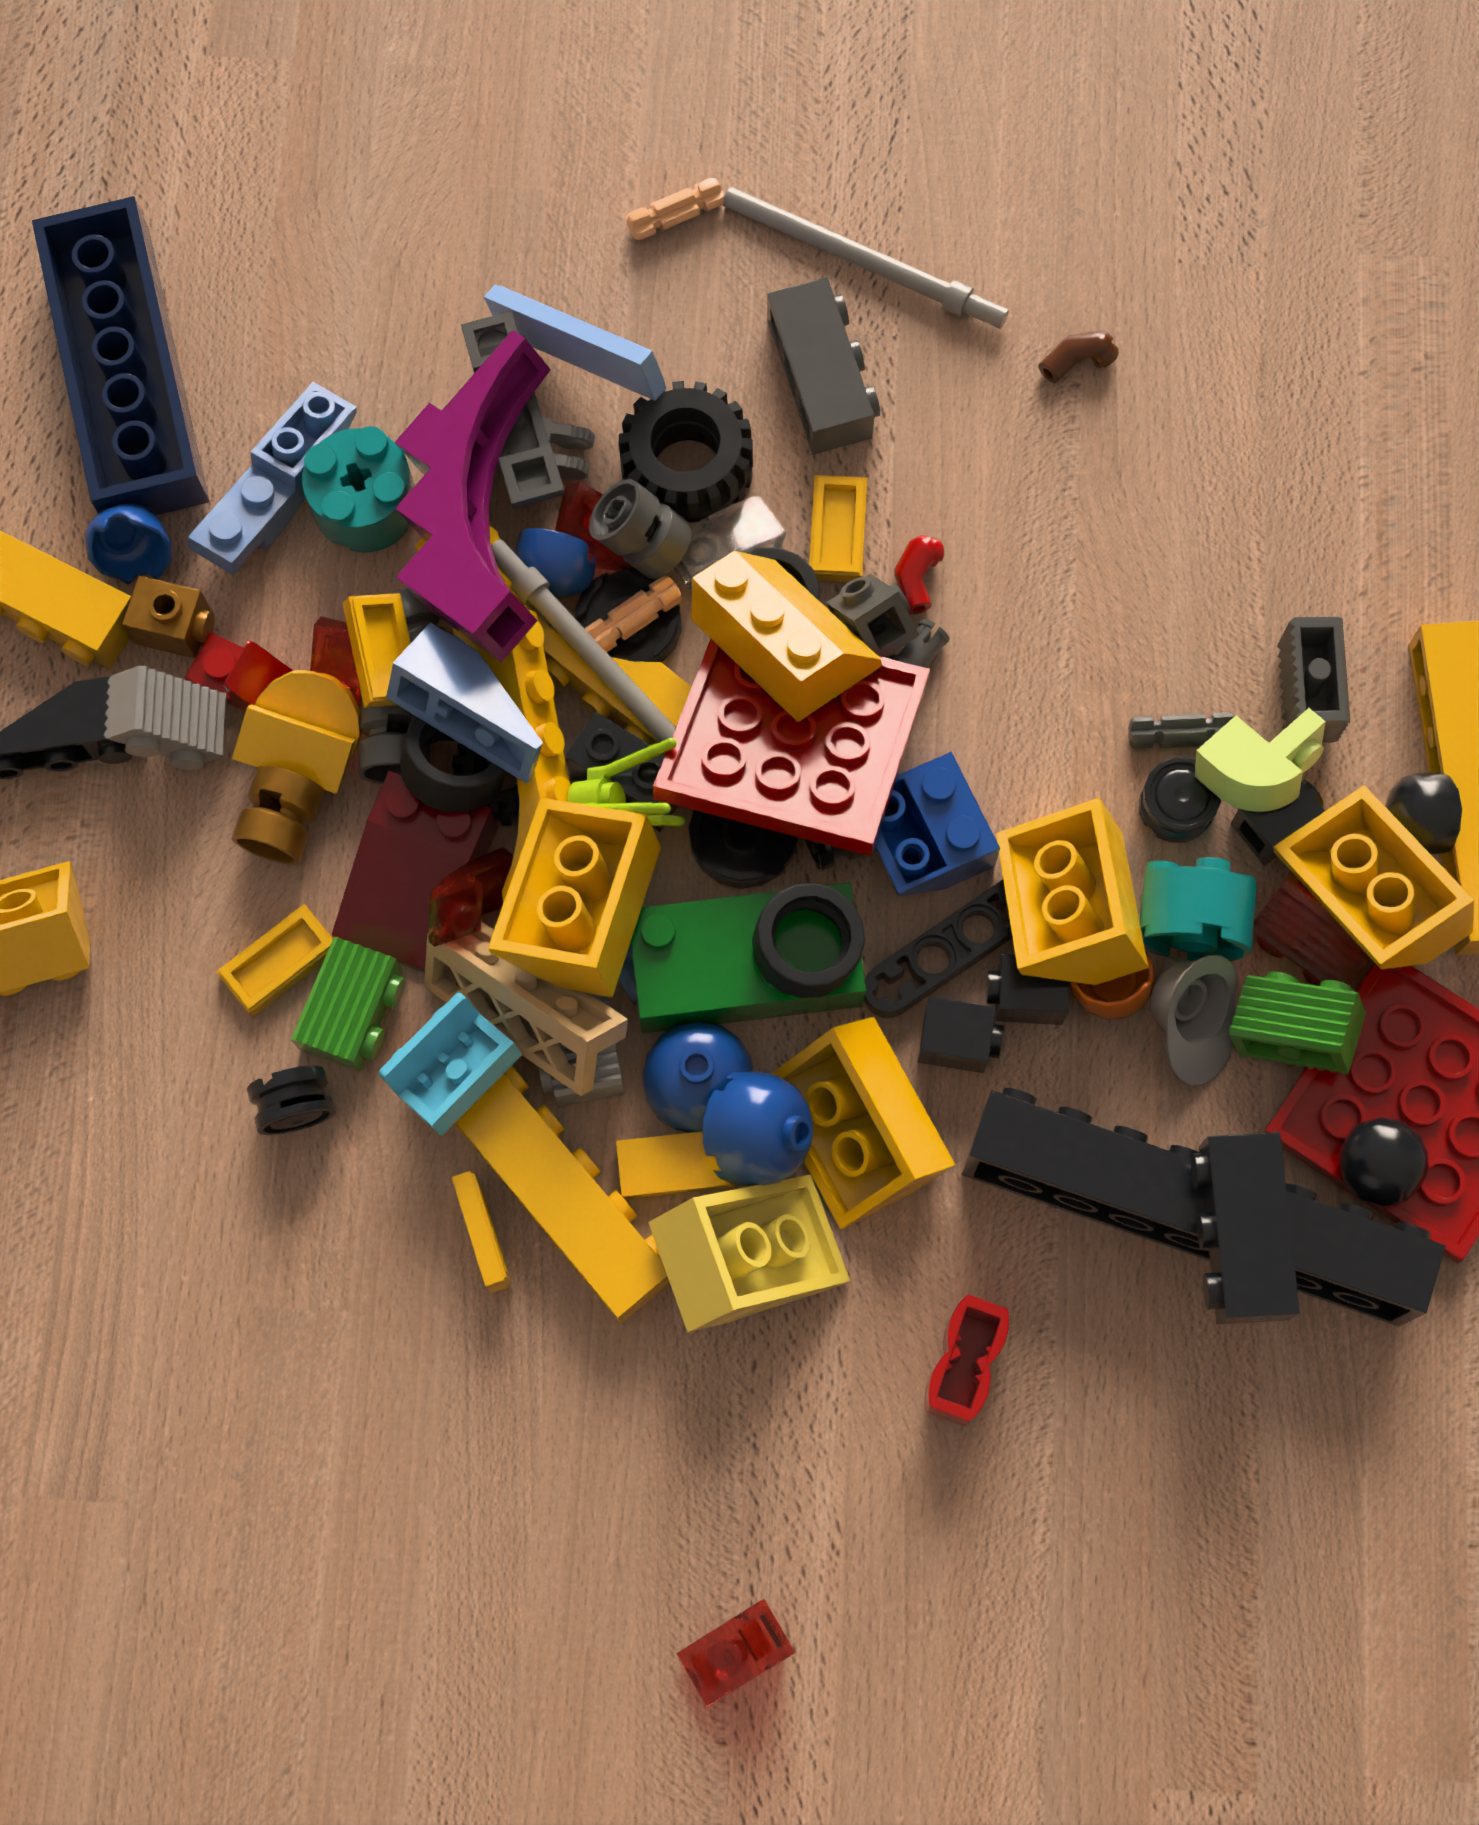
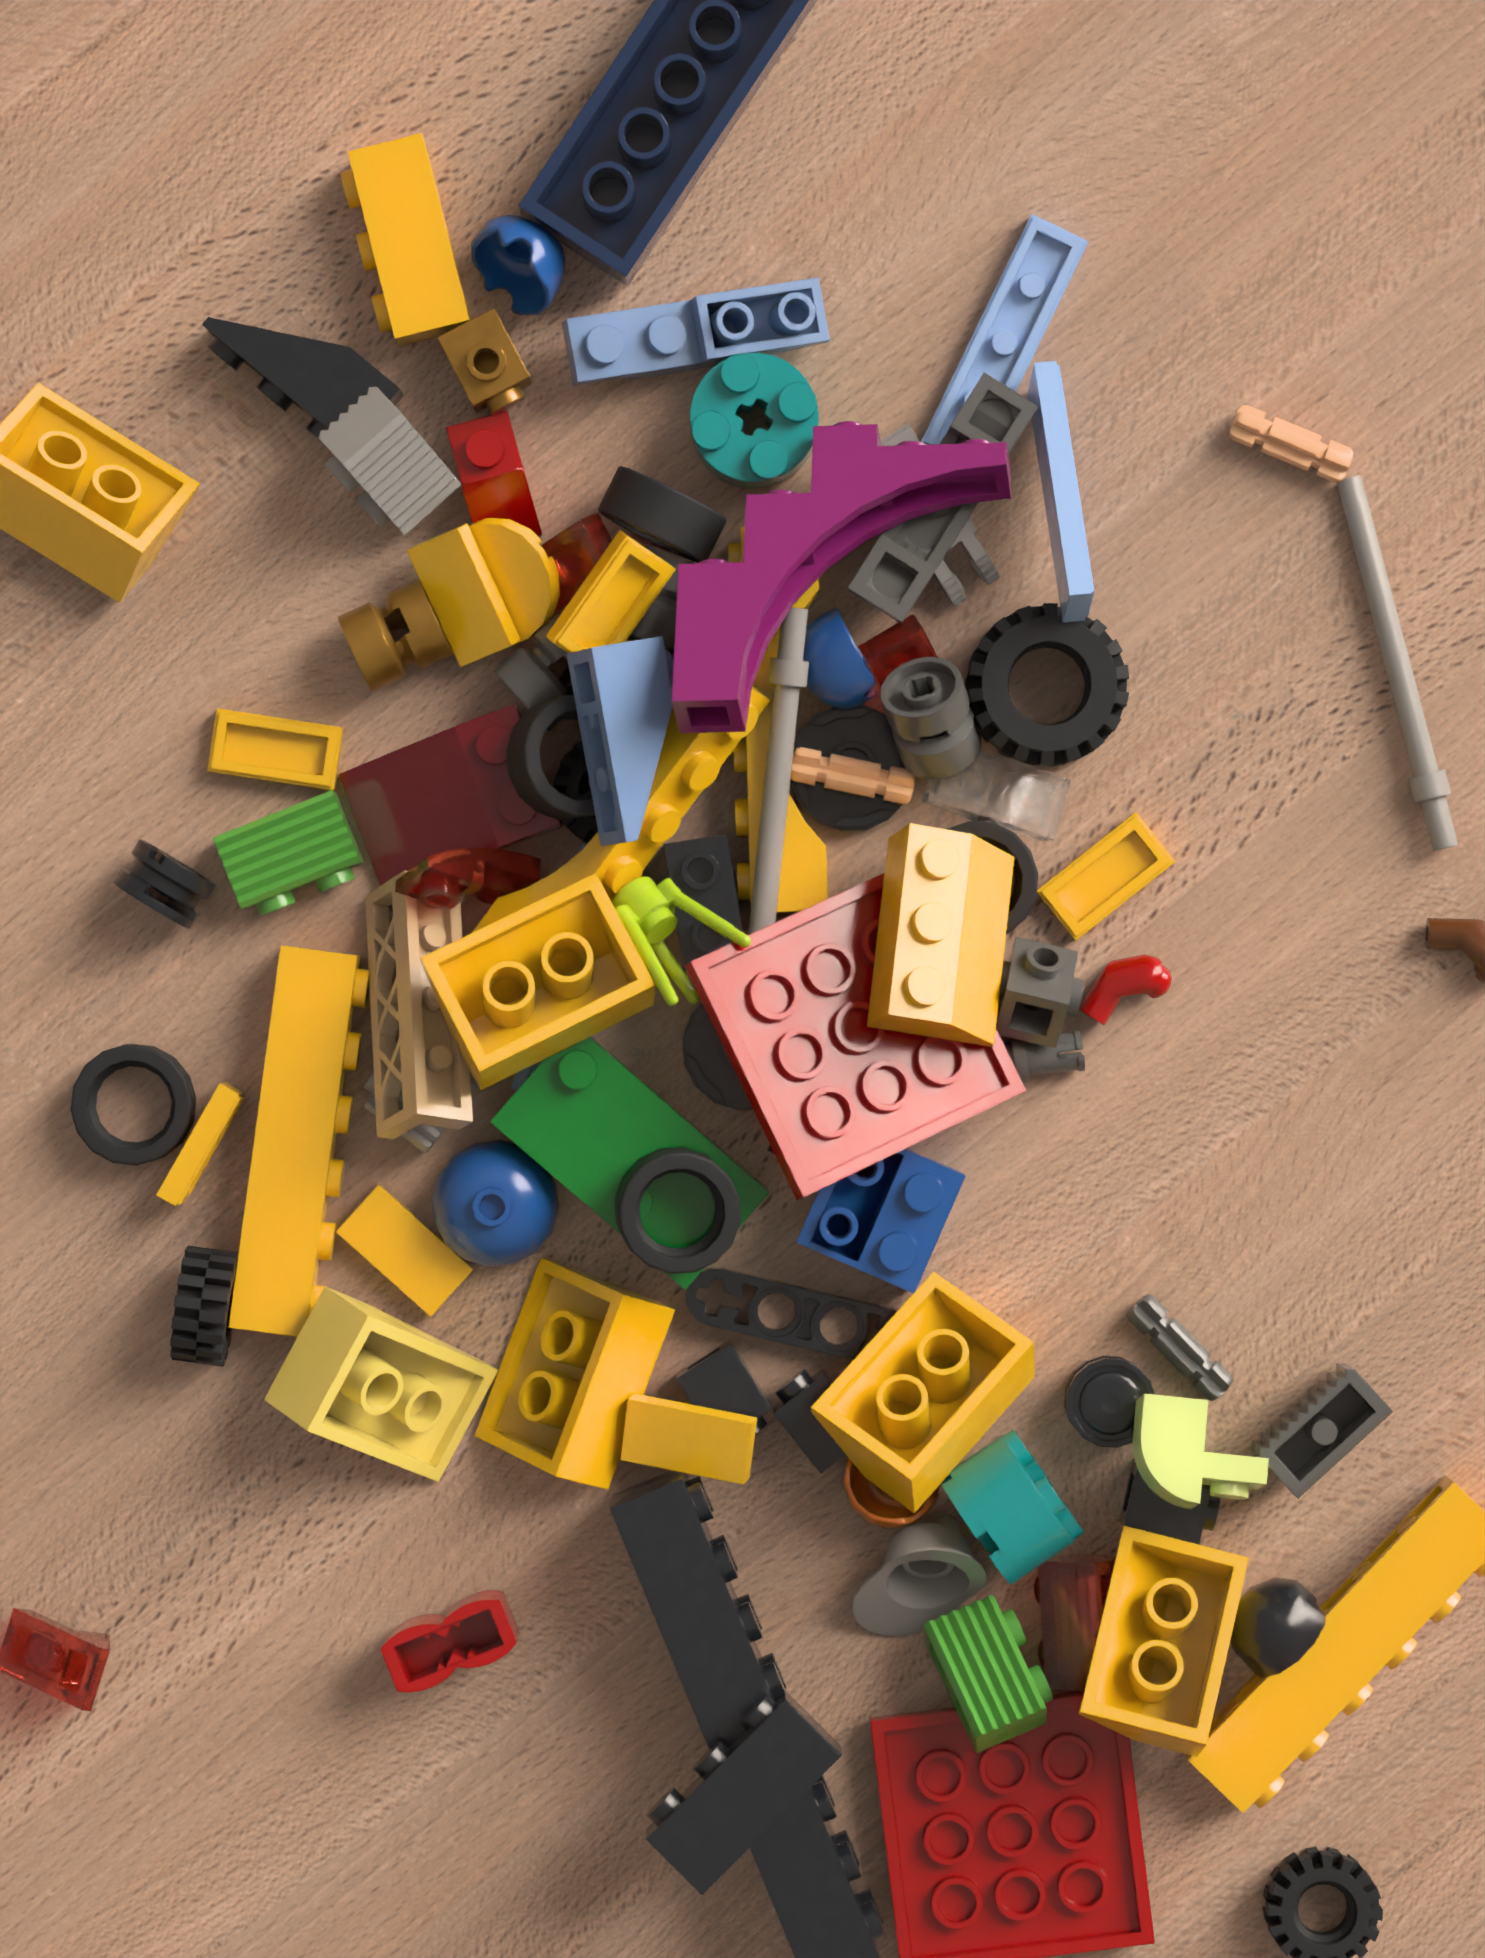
camera: 45 degrees right, 15 degrees up
(355, 572) = (662, 514): none -> black tyre
(375, 1235) = (85, 1099): none -> black tyre
(444, 292) = (1013, 317): none -> light blue tile
(449, 1063) = (305, 1003): medium azure bracket -> none
(589, 1321) = (203, 1306): none -> black tyre
(757, 1129) = (487, 1303): blue cylinder -> none
(822, 365) = (1249, 725): dark grey brick -> none
(968, 1075) = (688, 1438): none -> yellow tile
(1383, 1161) = (926, 1842): black hair -> none

